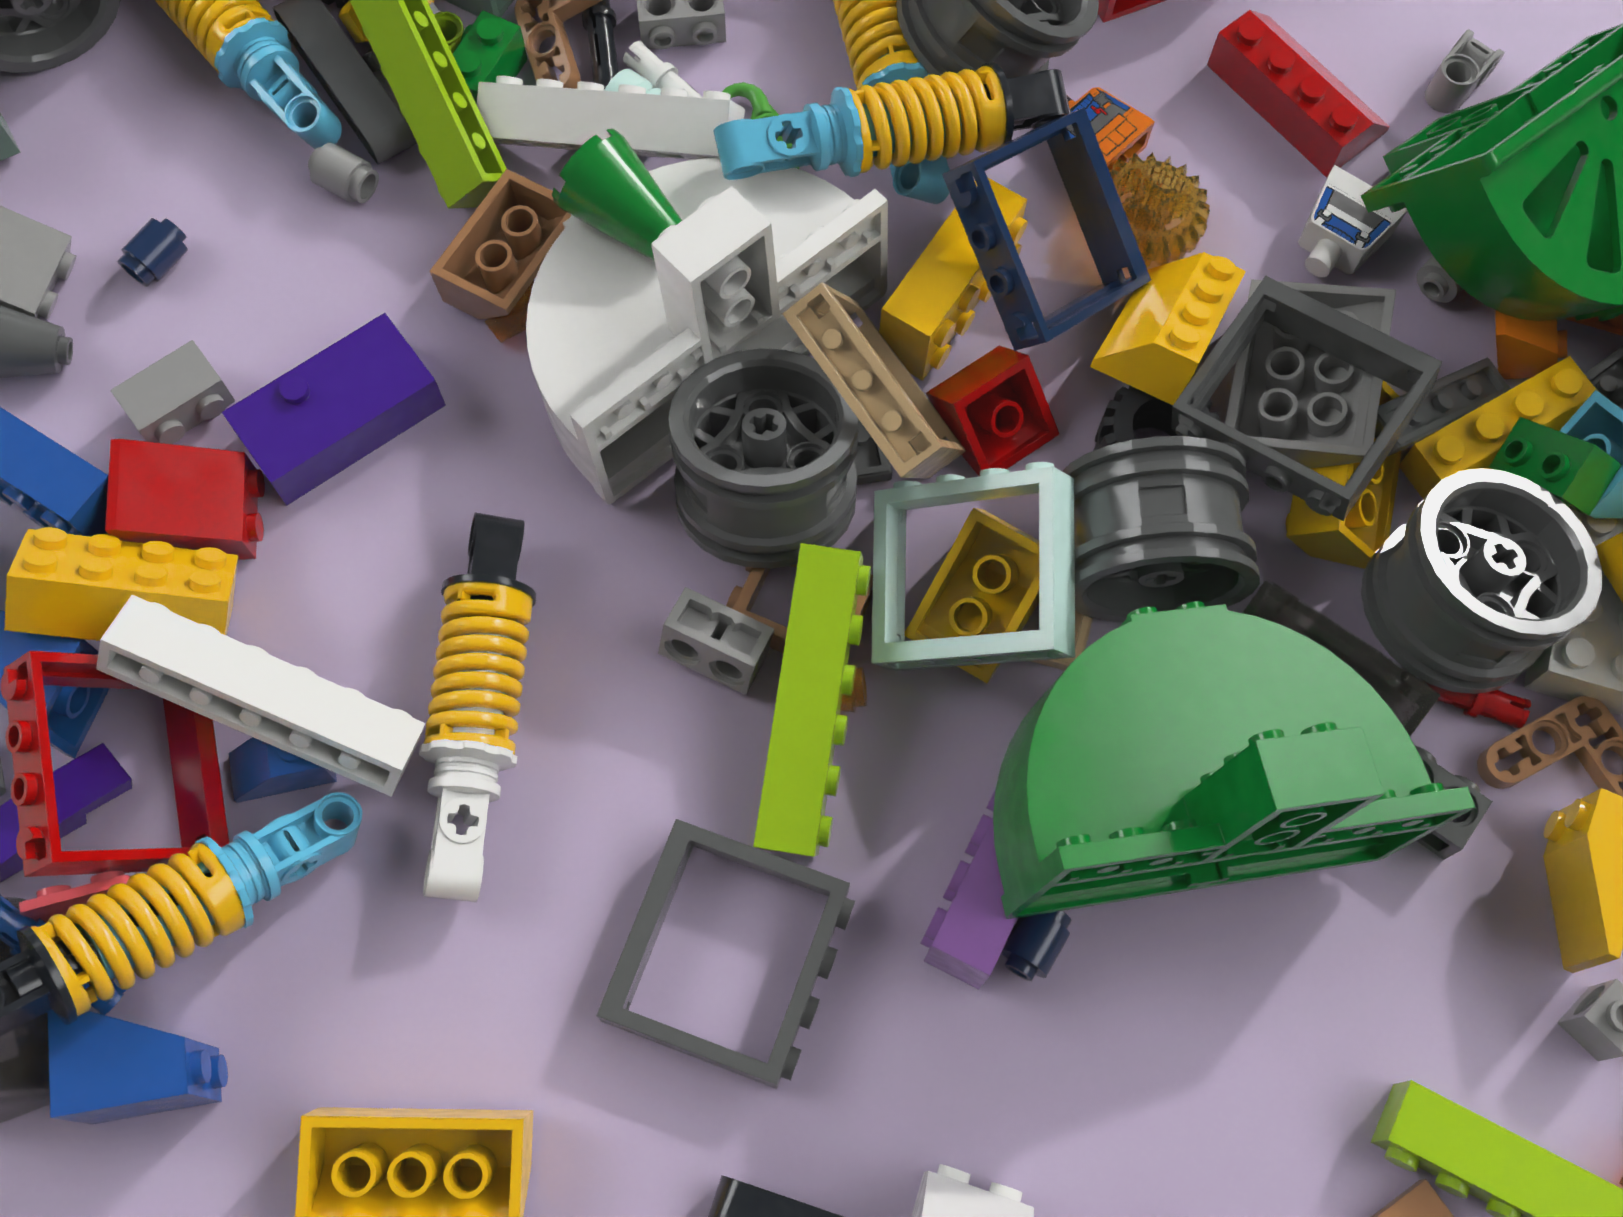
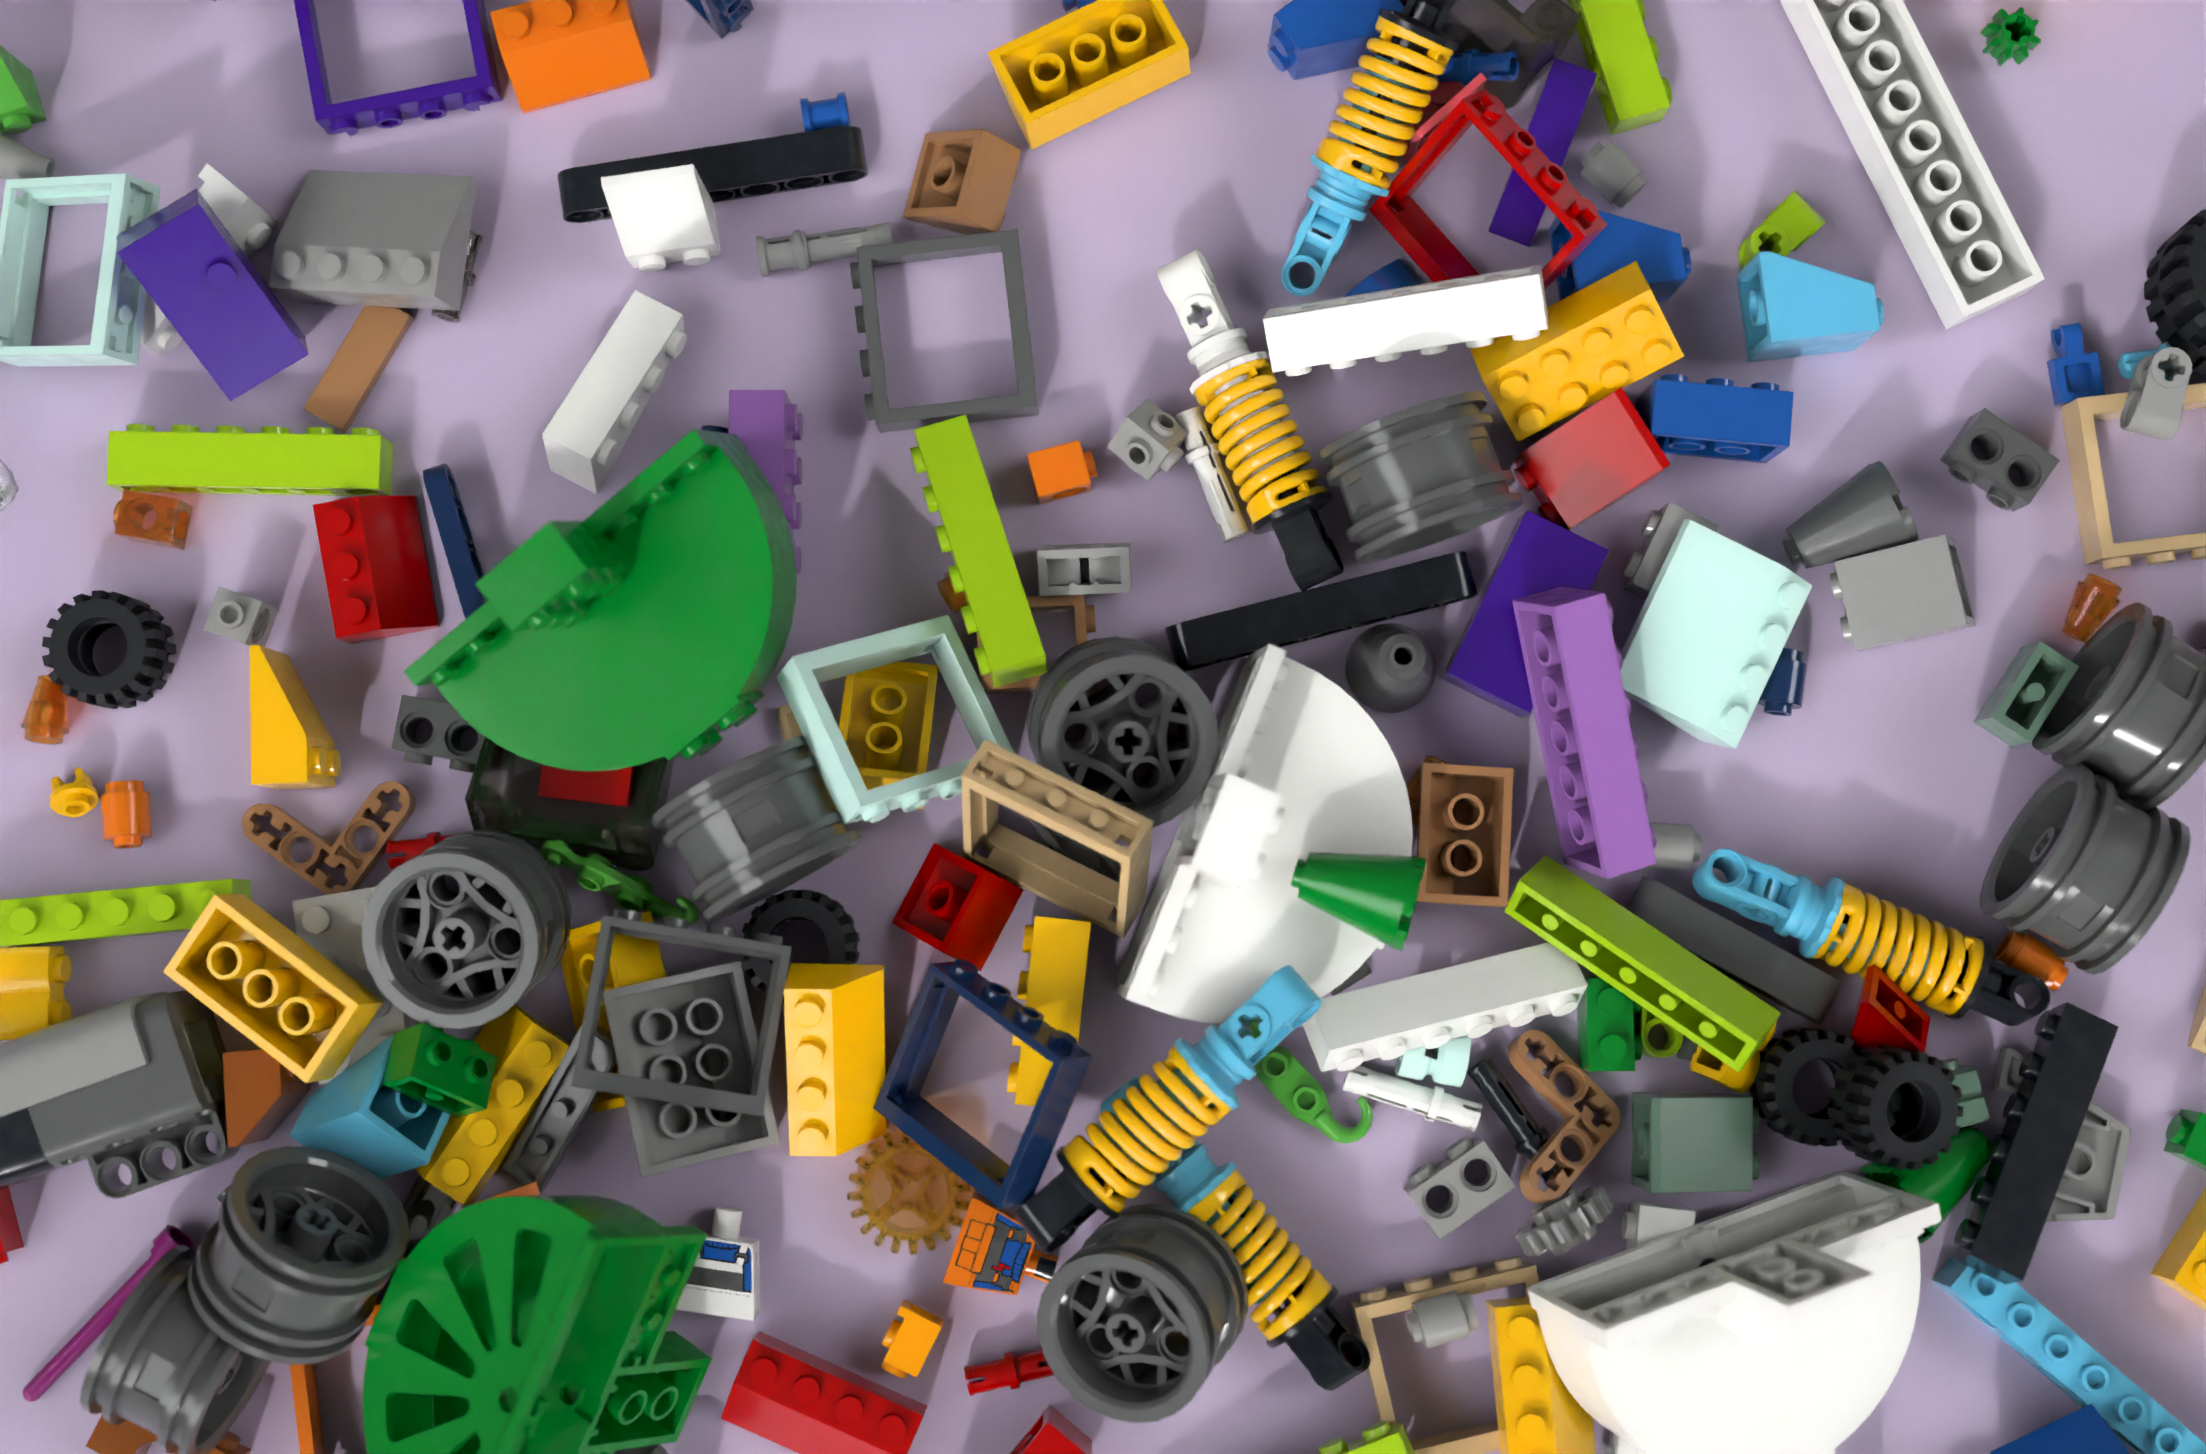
camera: 155 degrees right, 15 degrees up
(182, 300) = (1710, 634): none -> light aqua slope
(343, 264) = (1585, 730): none -> medium lavender brick
(347, 540) = (1420, 476): none -> dark grey wheel
(481, 422) = (1377, 676): none -> dark grey cone
(541, 697) = (1211, 474): none -> white pin
(547, 506) = (1322, 611): none -> black beam
(585, 735) = (1149, 440): none -> light grey brick
(626, 1110) = (962, 181): none -> medium nougat slope
(687, 751) = (1061, 471): none -> orange brick
(833, 1124) = (802, 249): none -> light grey pin
(1105, 1067) = (613, 391): none -> white wedge
(1124, 51) = (1007, 1372): none -> red pin
(1198, 104) = (910, 1340): none -> light orange brick
(1297, 565) = (630, 891): none -> bright green piece
(1342, 983) = (455, 536): none -> dark blue beam
(1441, 1006) = (375, 567): none -> red slope

